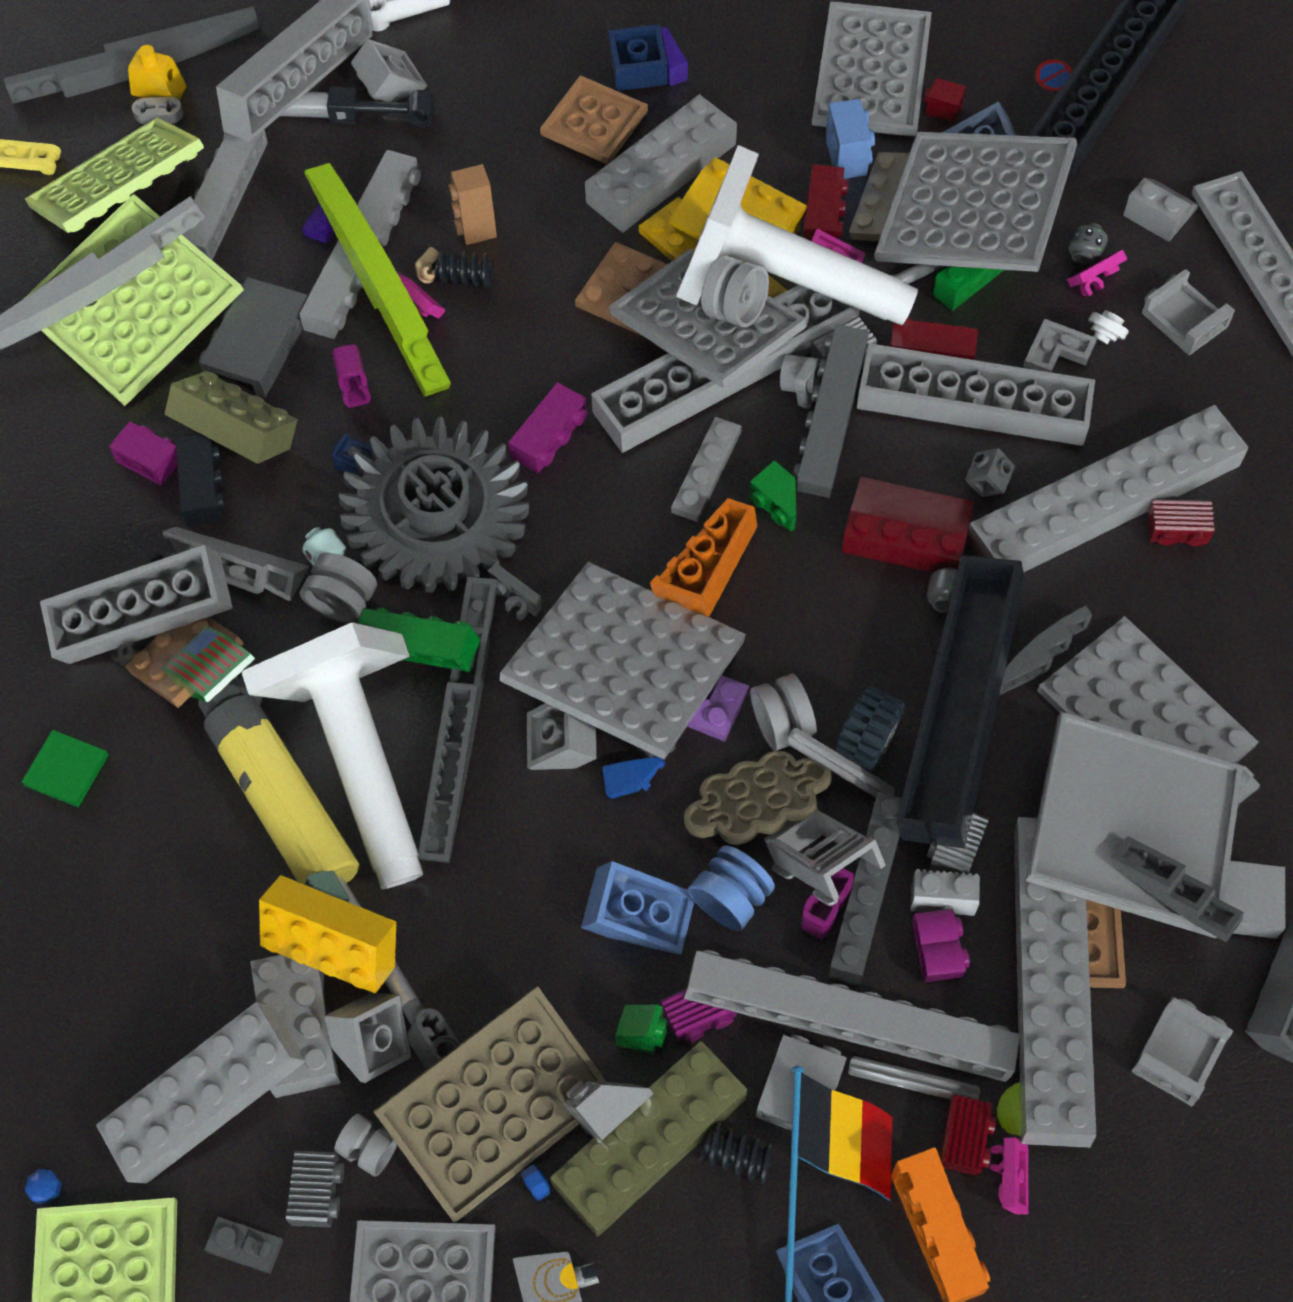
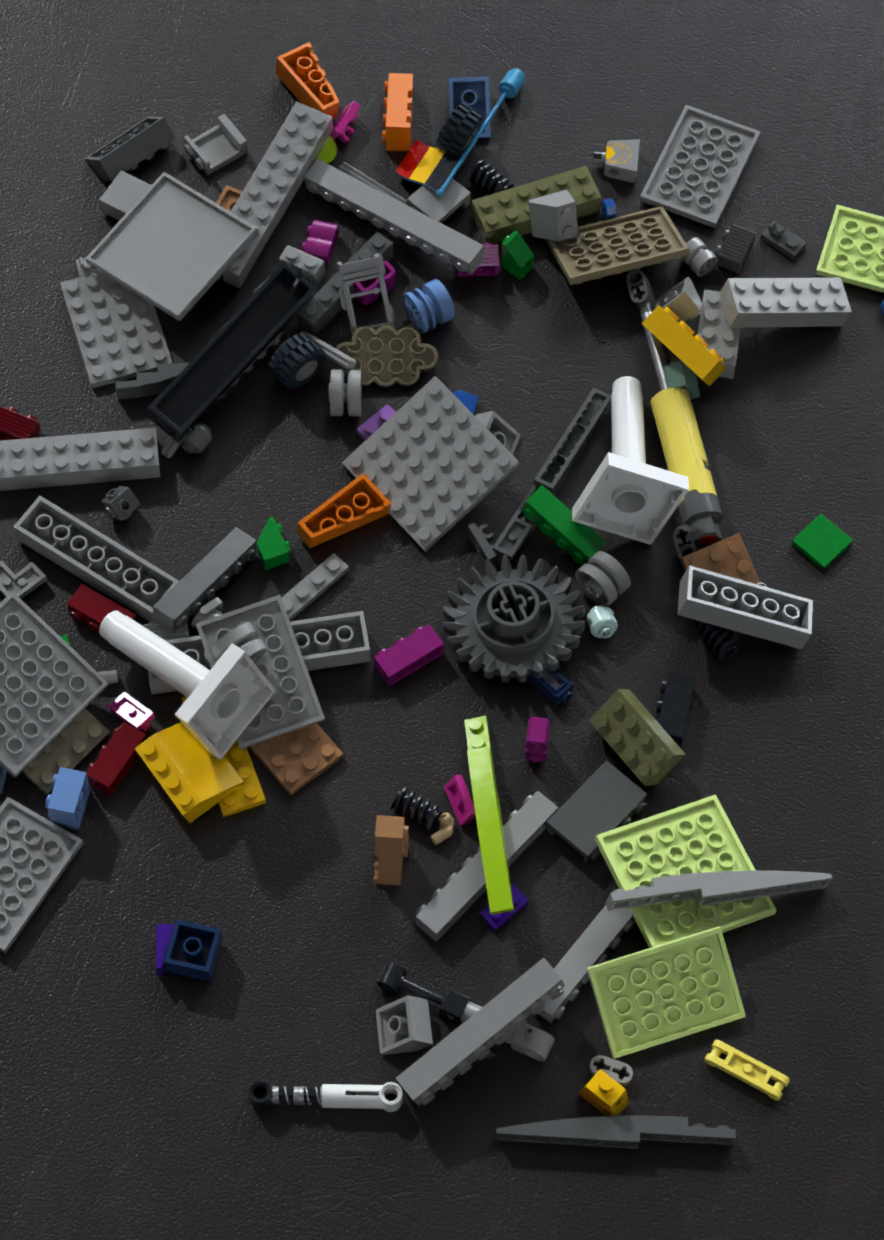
camera: 160 degrees left, 0 degrees up
(145, 453) = (707, 745): magenta brick -> none
(207, 664) = (708, 519): green slope -> none
(245, 566) = (666, 639): light grey wedge -> none
(594, 120) = (254, 912): medium nougat plate -> none
(638, 908) = (490, 324): medium blue slope -> none
(660, 163) = (222, 844): light grey brick -> none
(822, 1208) = (459, 130): none -> black wheel
(907, 526) = (194, 494): dark red slope -> none
(966, 1135) = (360, 147): dark red brick -> none
(1110, 1223) = (307, 80): none -> orange wedge
(1180, 892) = (175, 195): dark grey slope -> none

